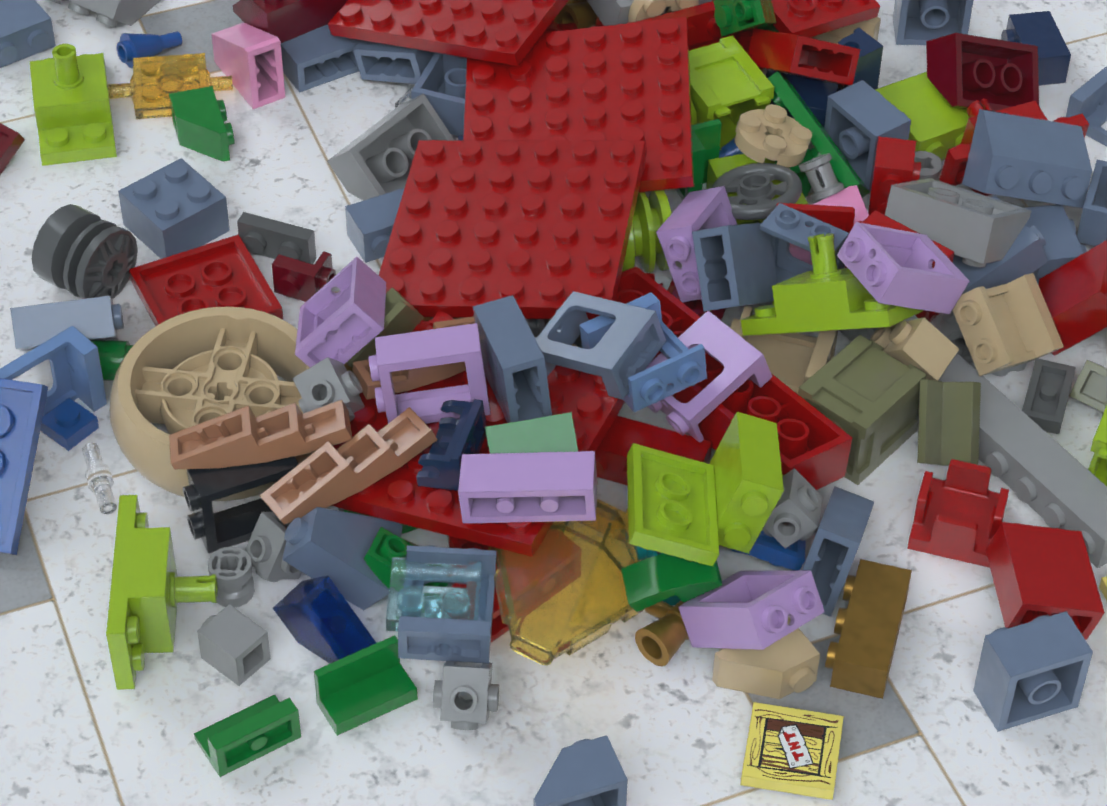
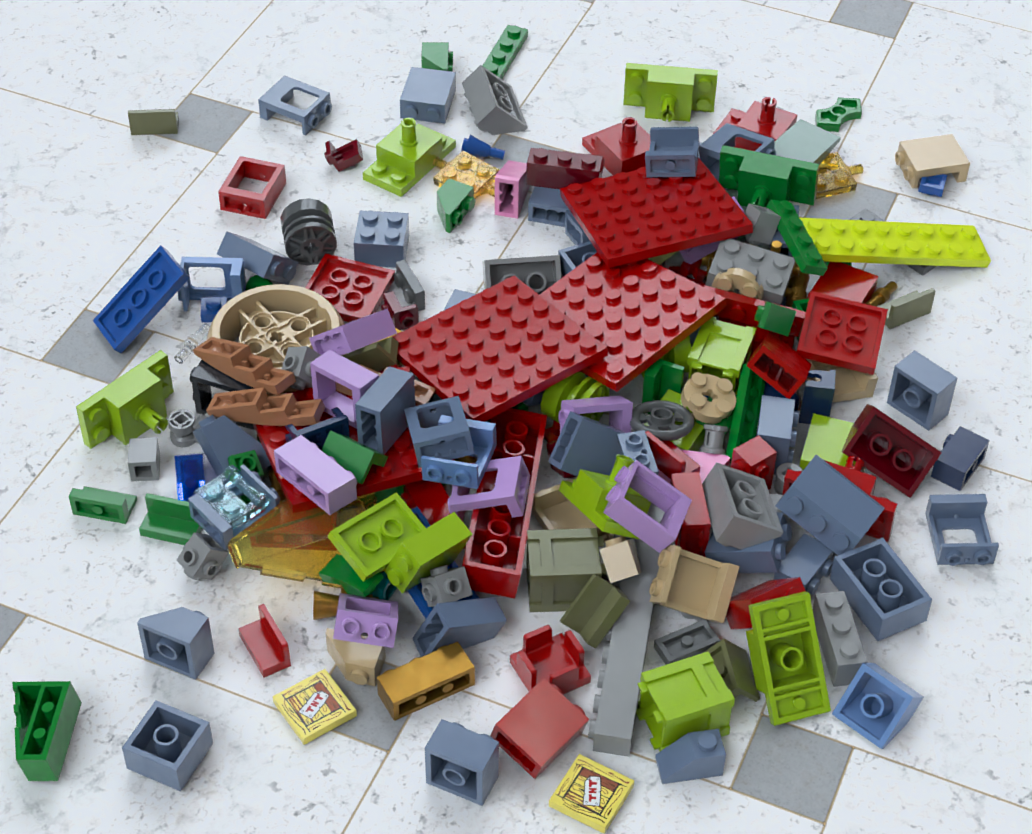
camera: 45 degrees right, 0 degrees up
(656, 725) = (266, 643): none -> panel

